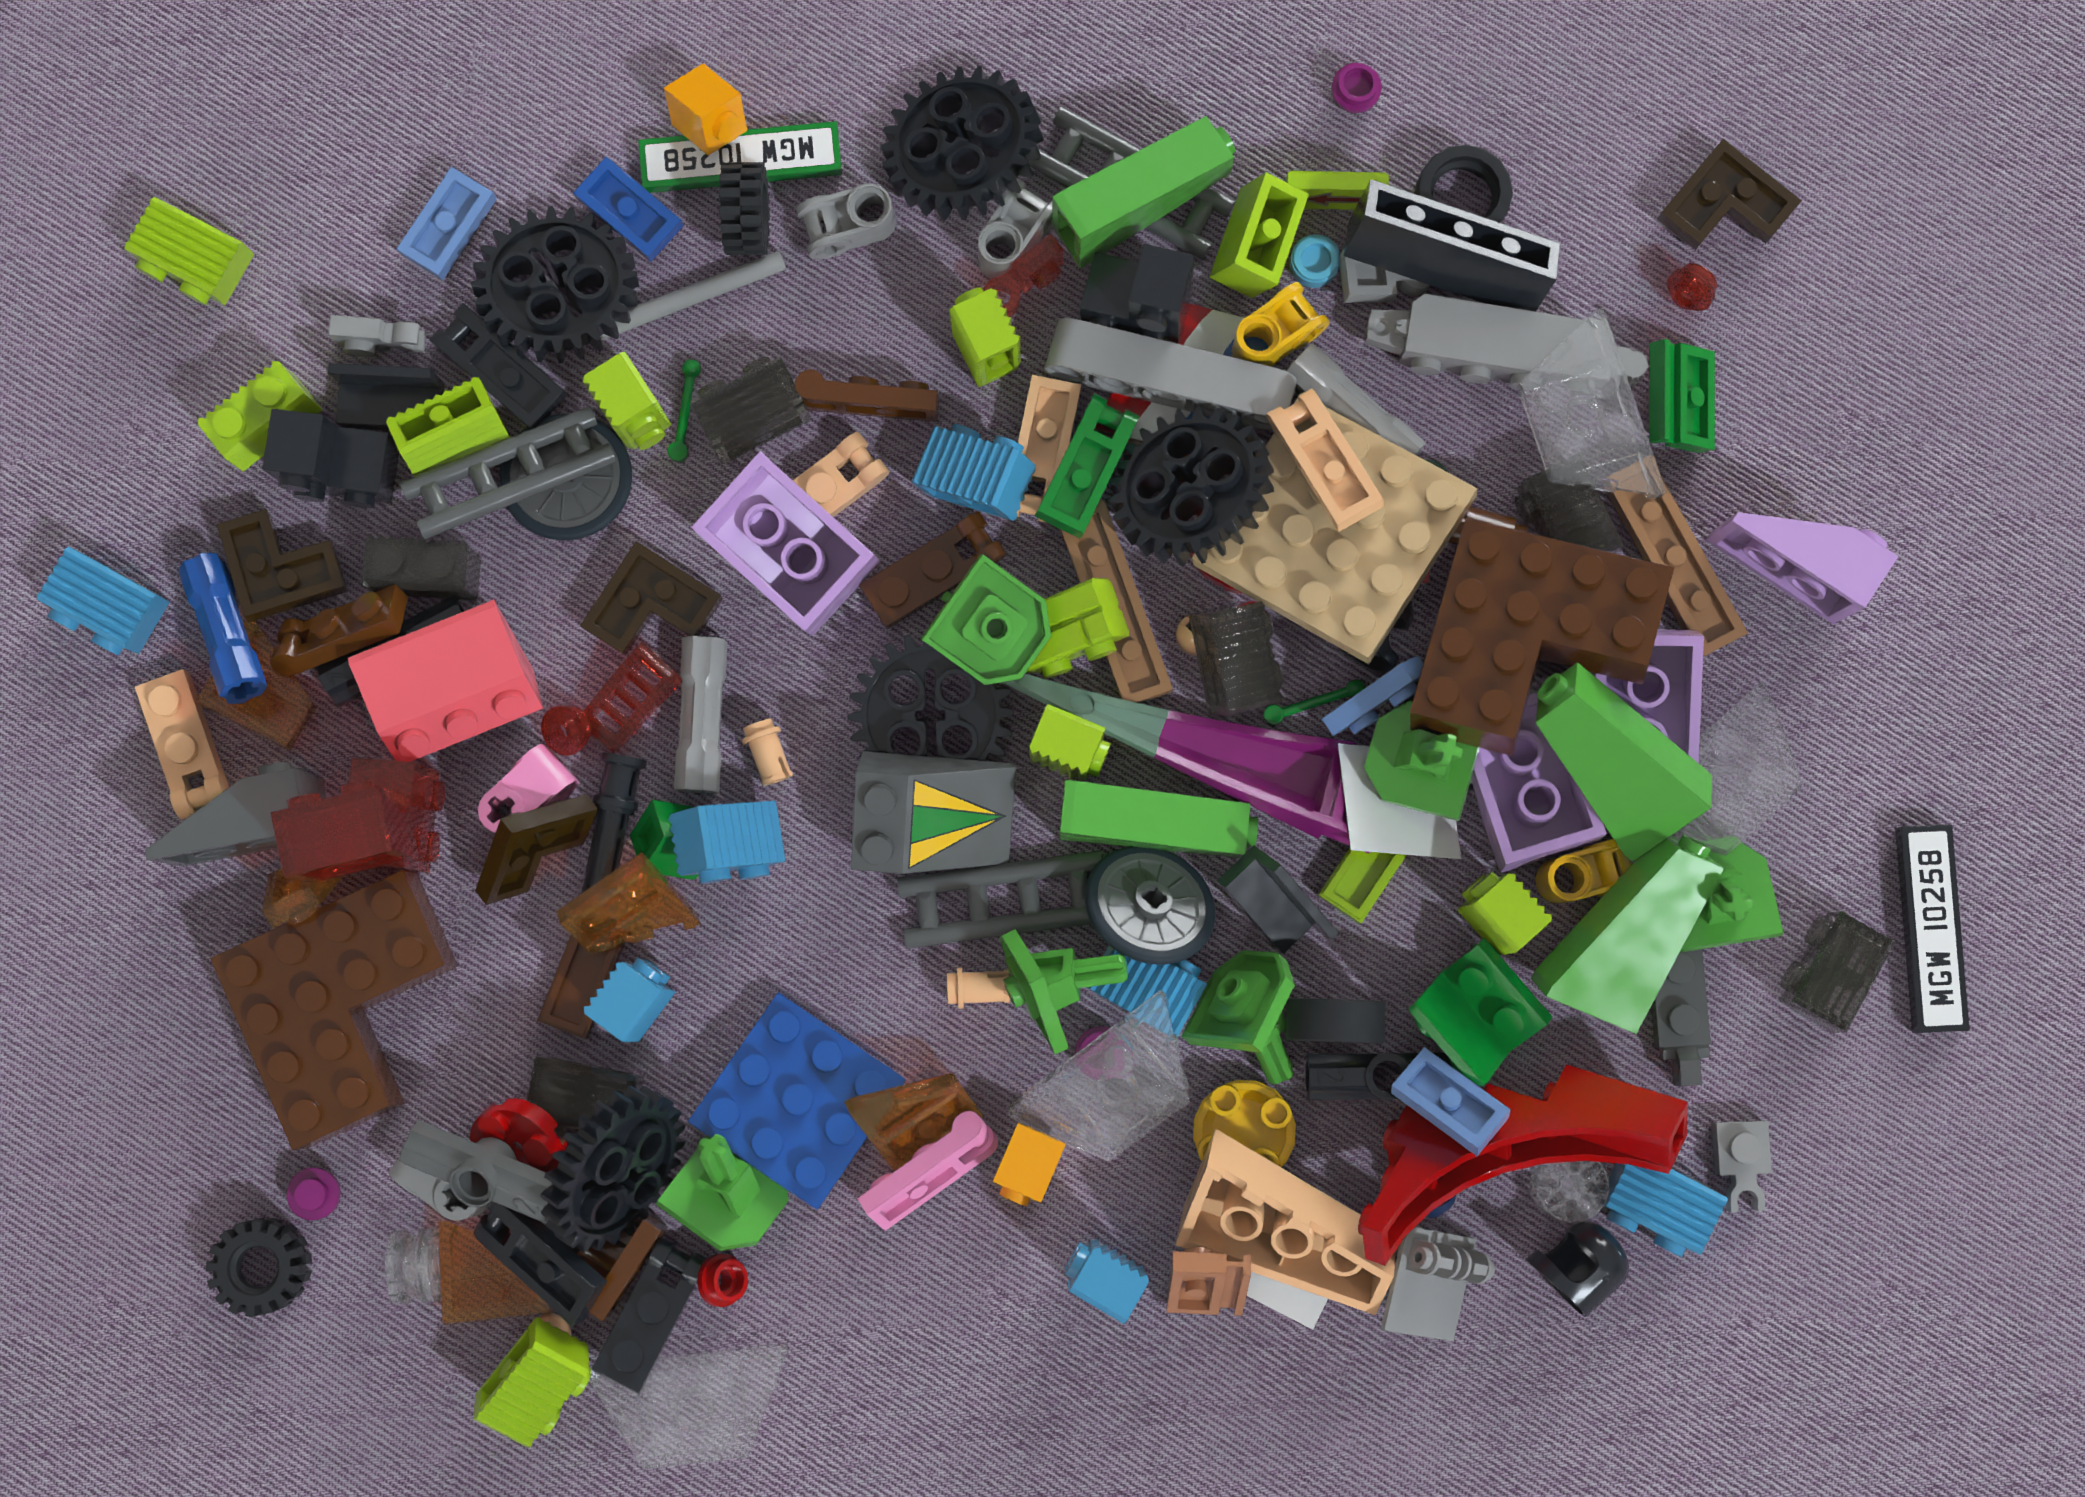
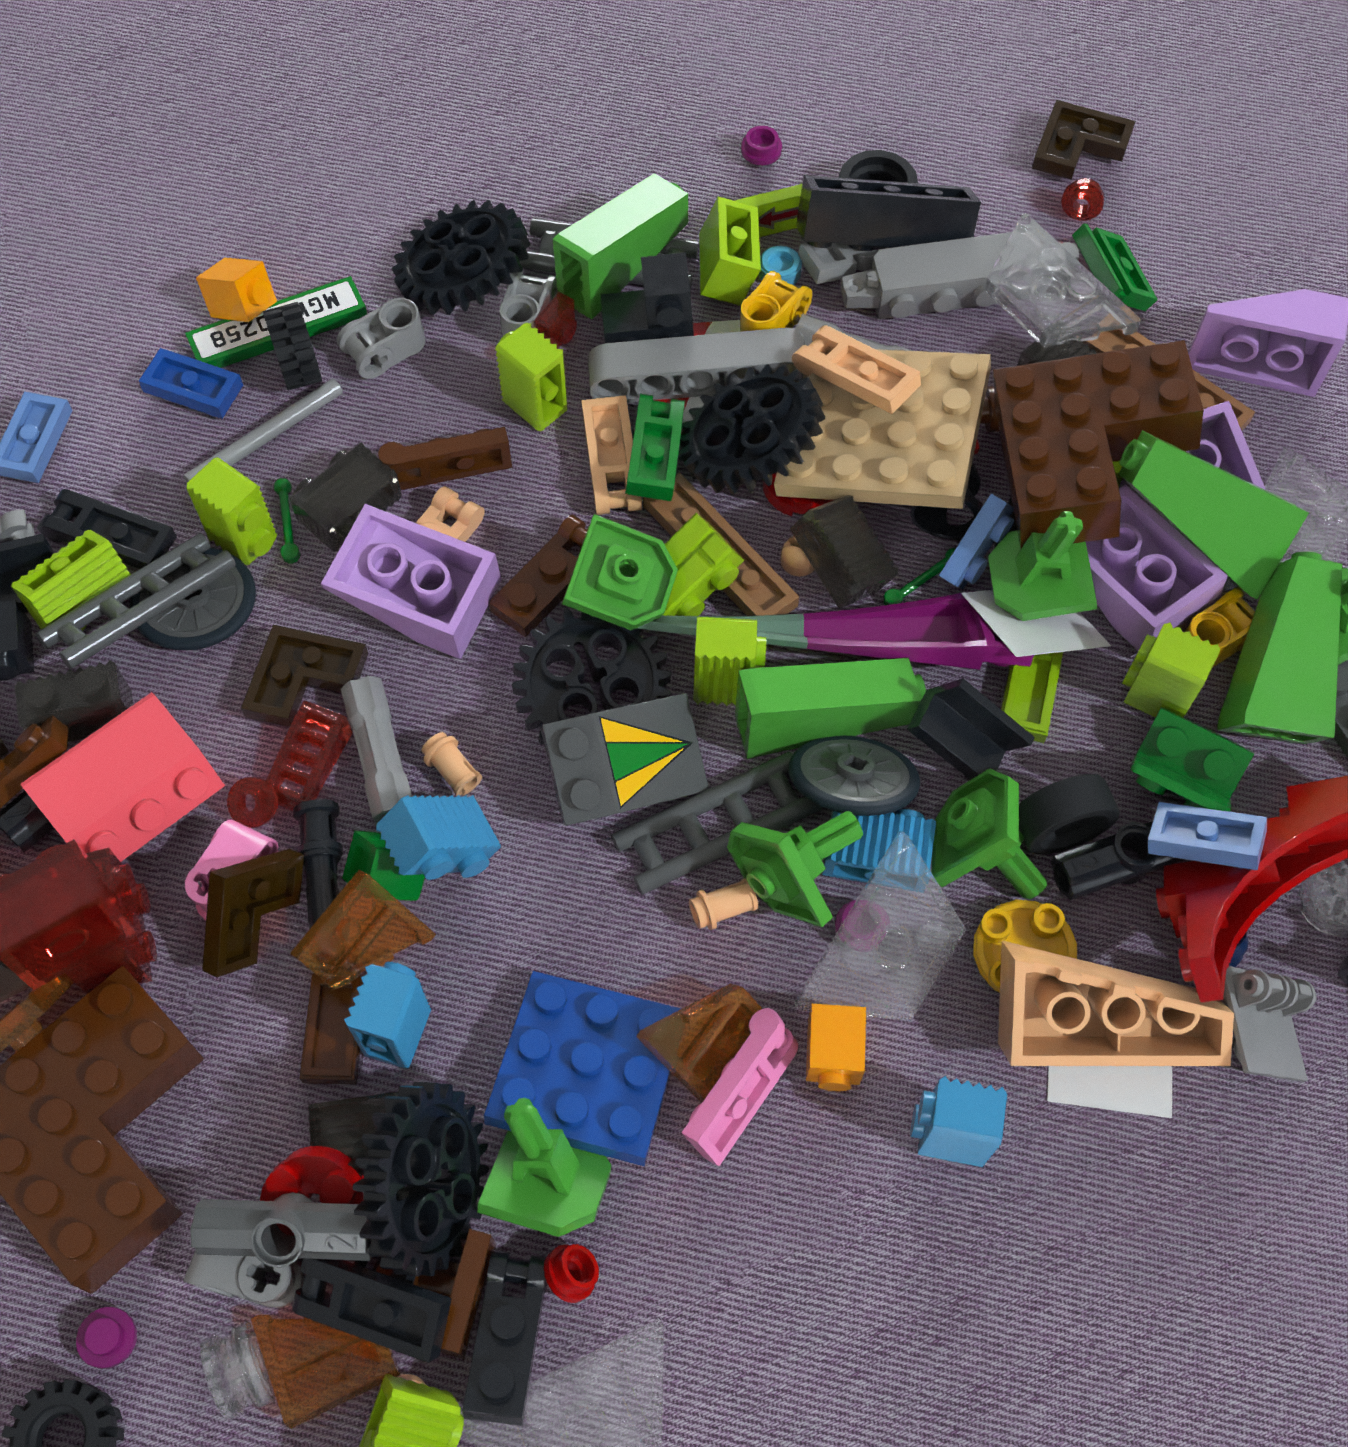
camera: 20 degrees left, 20 degrees down
(516, 306) = (140, 450): black gear -> none
(974, 471) = (559, 479): dark azure brick -> none
(1206, 1282) = (1058, 1092): nougat plate -> none

